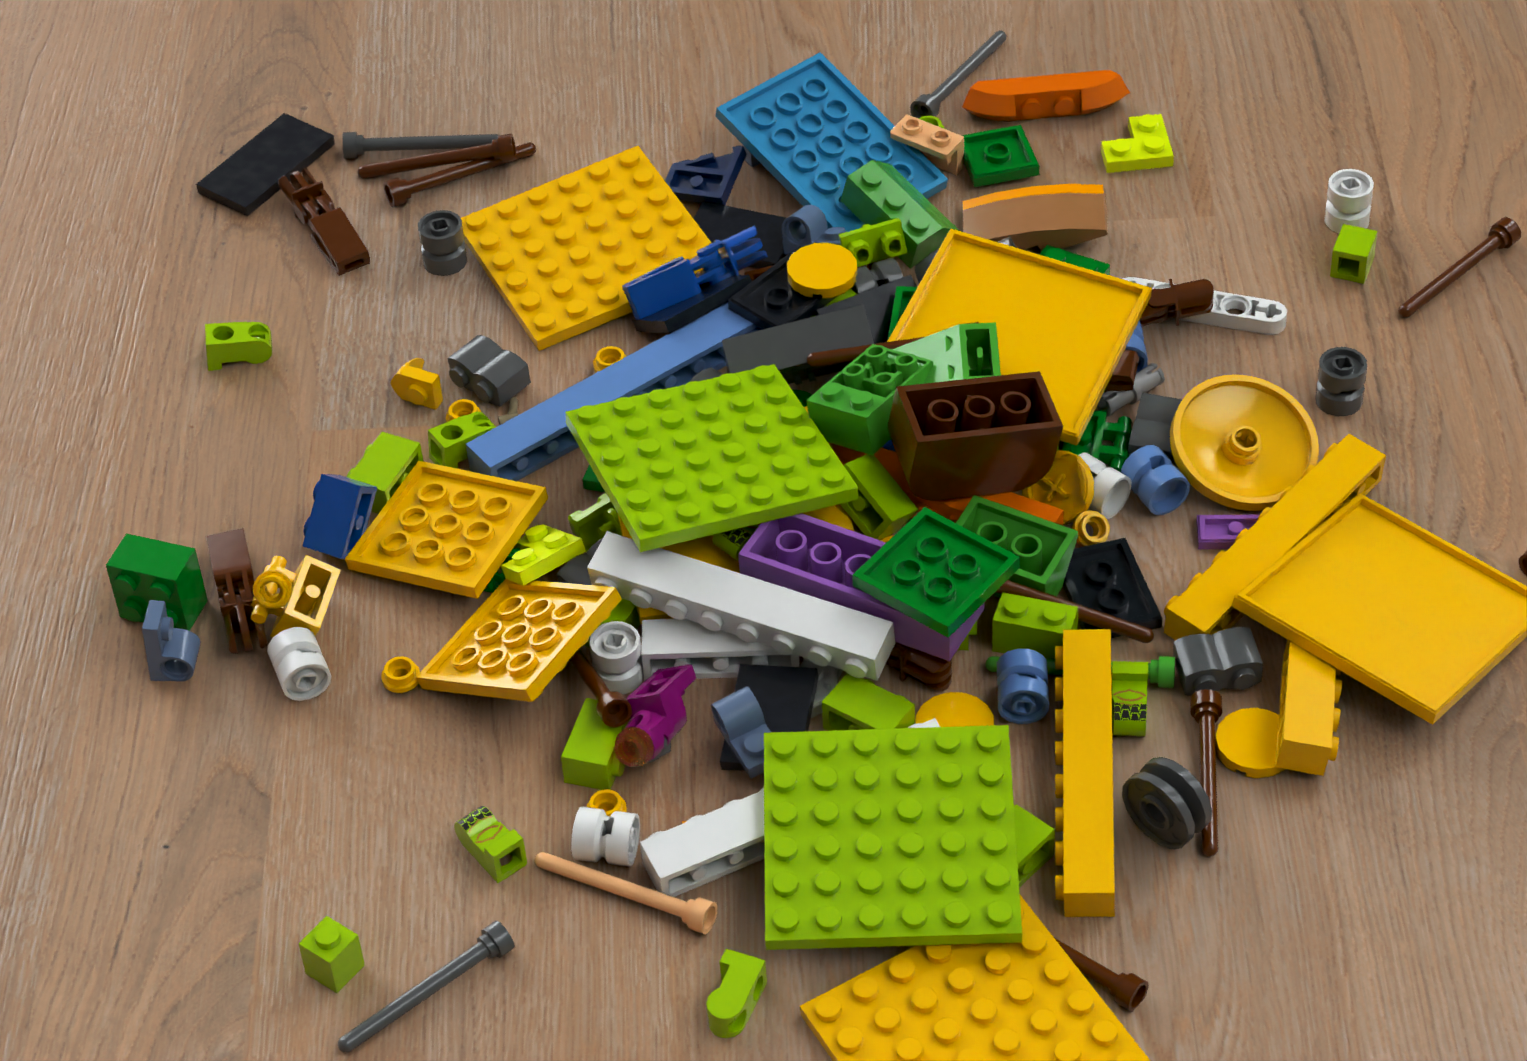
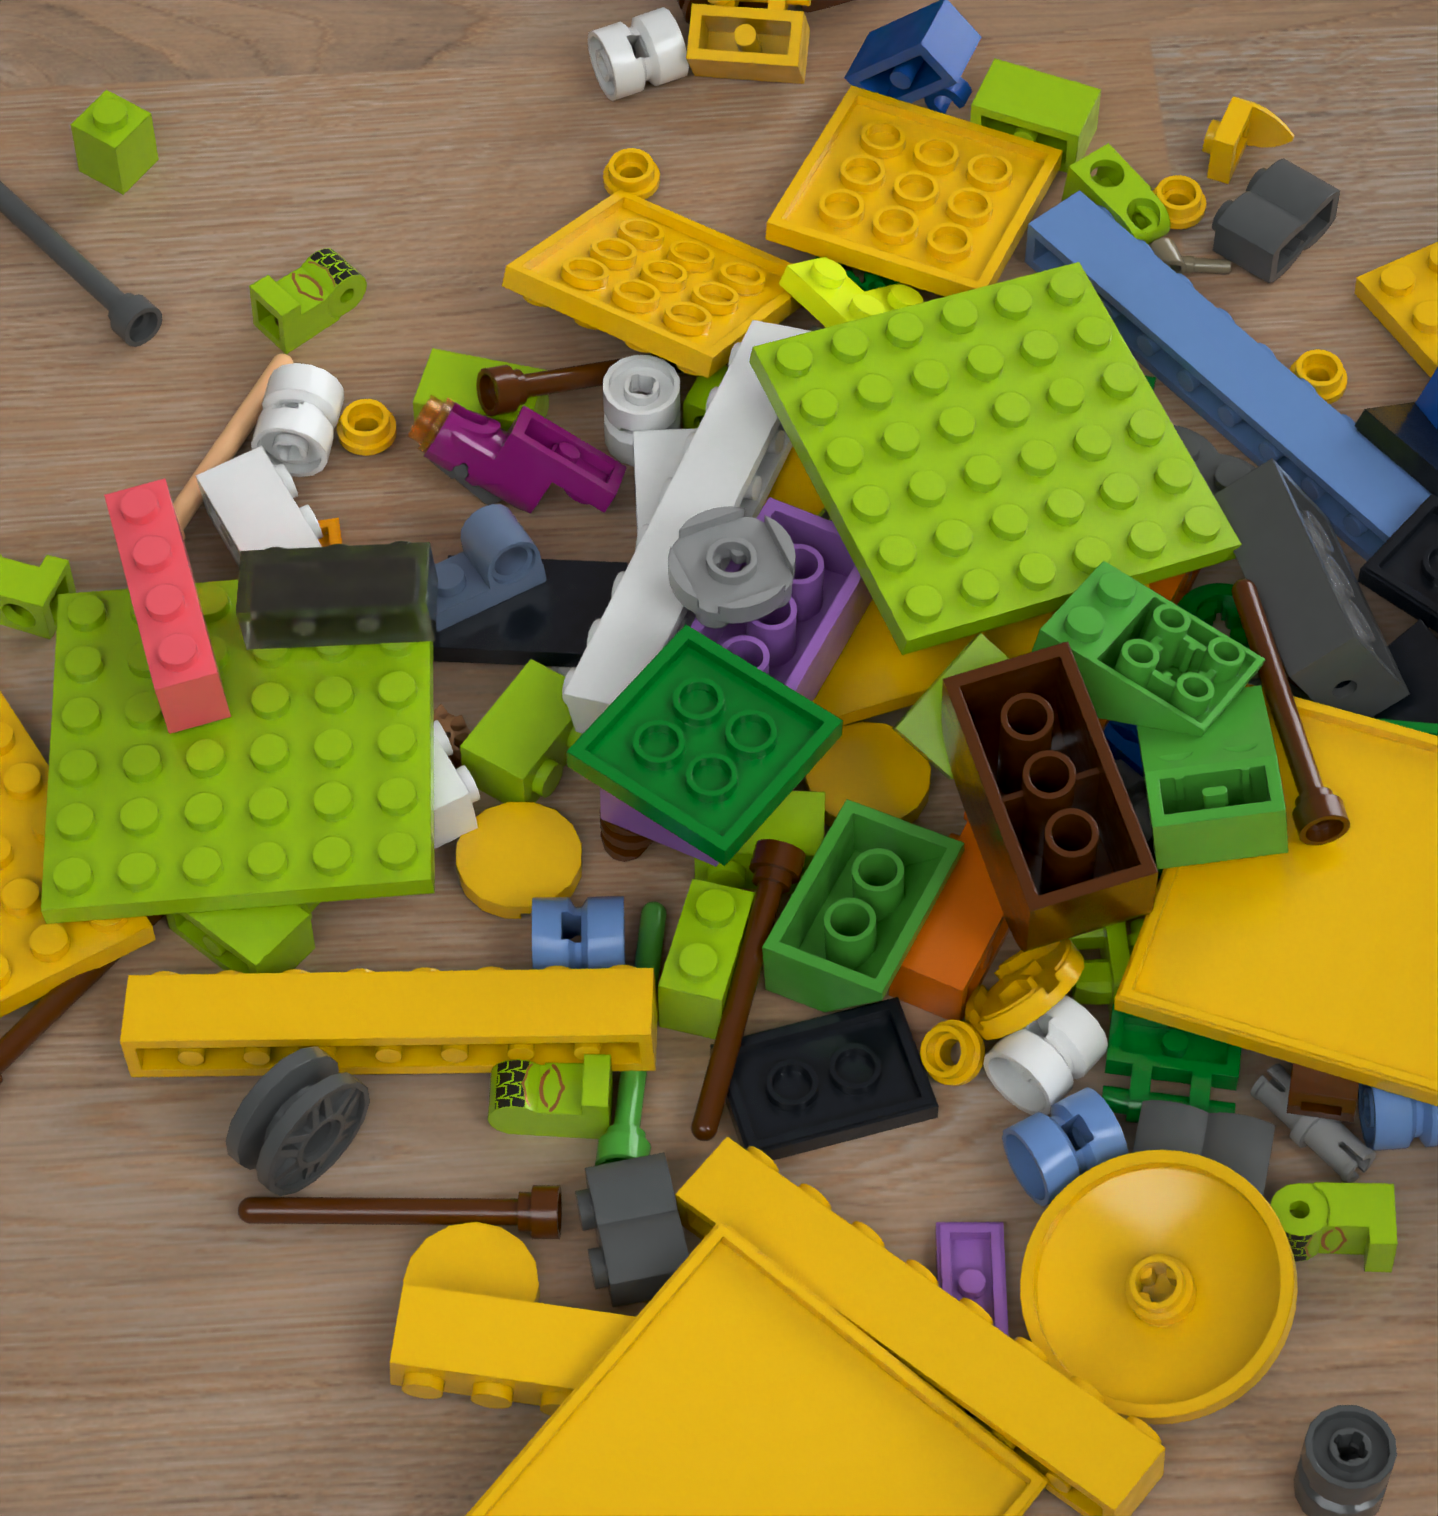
camera: 85 degrees right, 10 degrees up
(802, 760) = (337, 595): none -> clear smoke brick
(805, 850) = (167, 606): none -> coral brick
(807, 577) = (731, 596): none -> light grey plate
(1191, 370) = (1340, 1221): none -> lime leg

